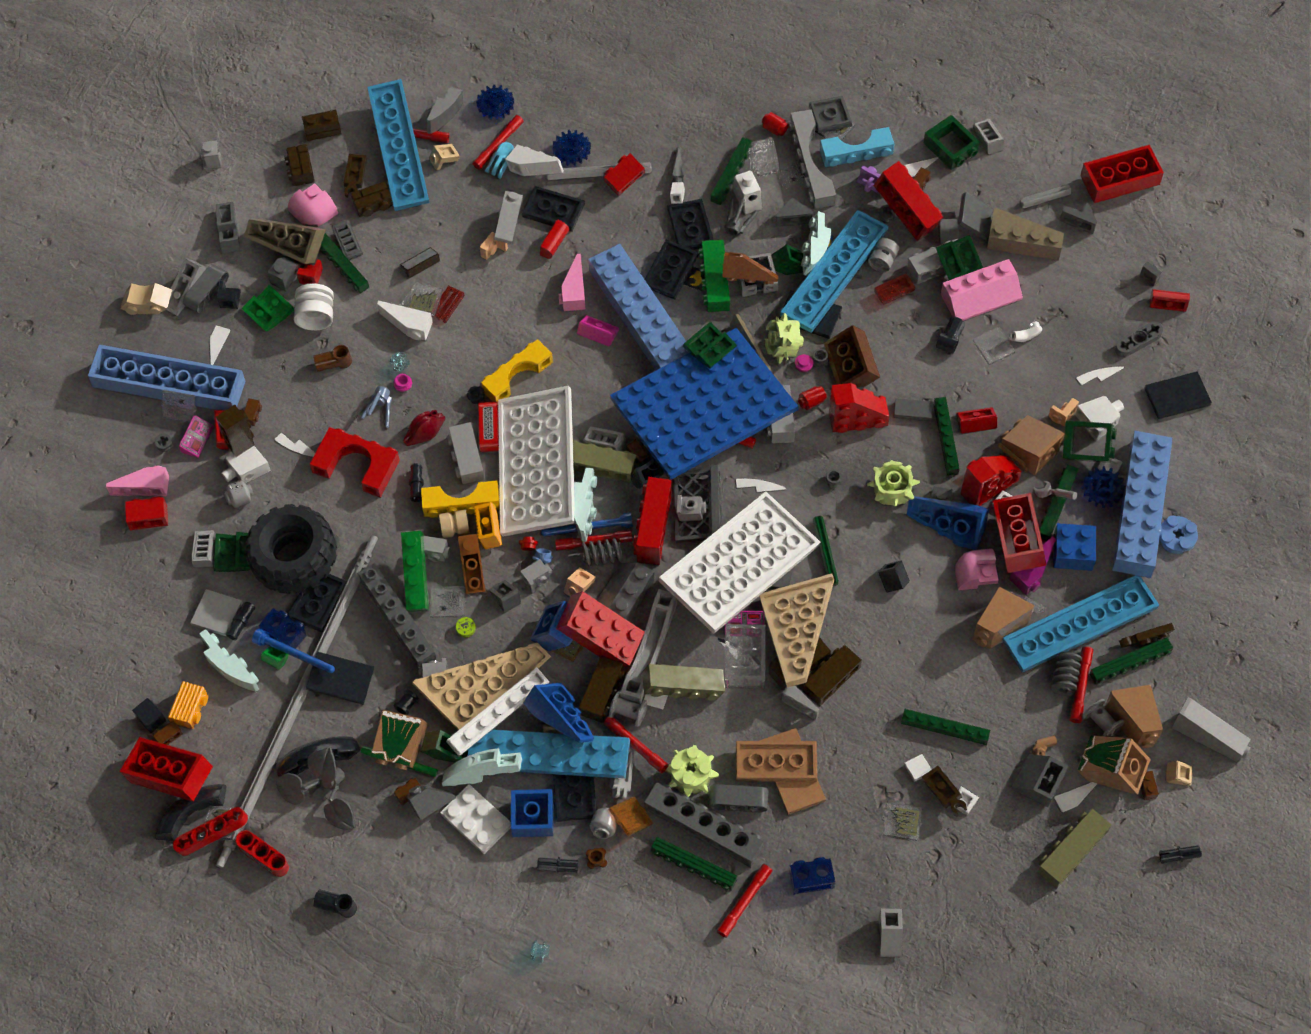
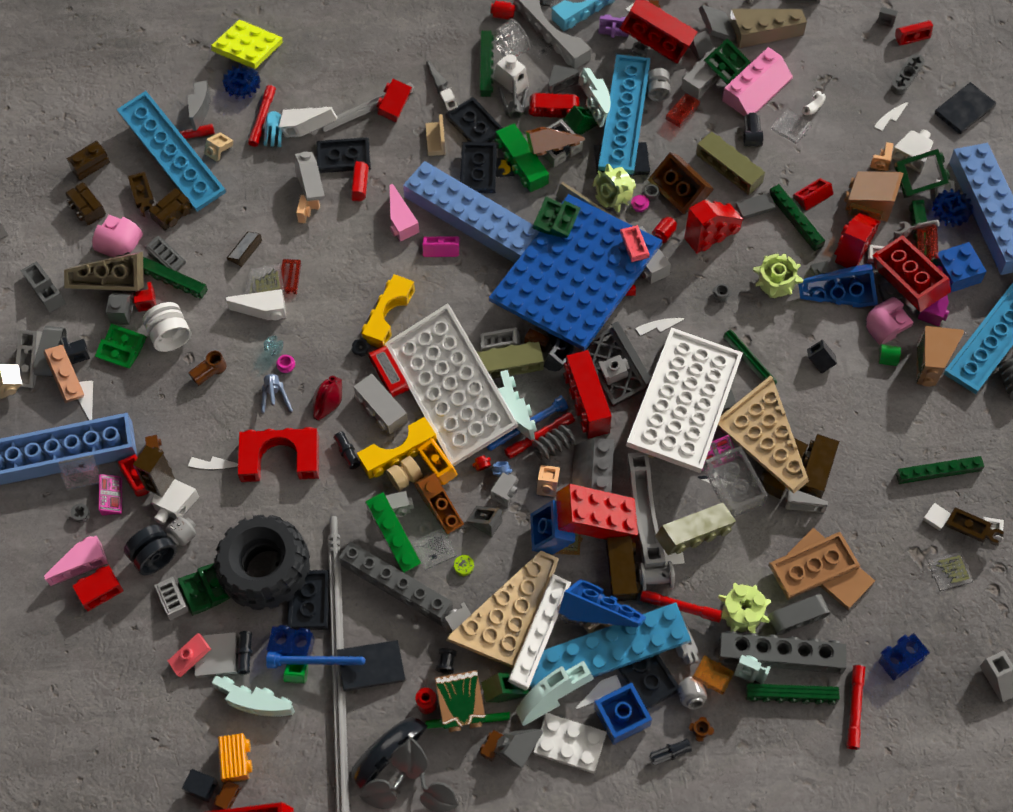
camera: 25 degrees left, 0 degrees up
(193, 602) = (189, 655): none -> coral plate
(203, 498) = (150, 550): none -> black wheel
(206, 313) = (63, 373): none -> nougat plate
(369, 727) = (426, 706): none -> red brick
(517, 67) = (246, 44): none -> neon yellow plate
(532, 784) = (601, 689): none -> white sticker
(572, 147) = (333, 95): clear blue gear -> none
(646, 225) = (435, 137): none -> tan panel
(663, 824) = (751, 669): none -> light aqua plate
(767, 398) = (634, 243): none -> coral plate
(771, 235) = (552, 104): none -> red beam
(911, 358) = (730, 163): none -> olive brick
(960, 601) = (889, 355): none -> green brick
(1054, 511) = (931, 241): none -> clear red tile

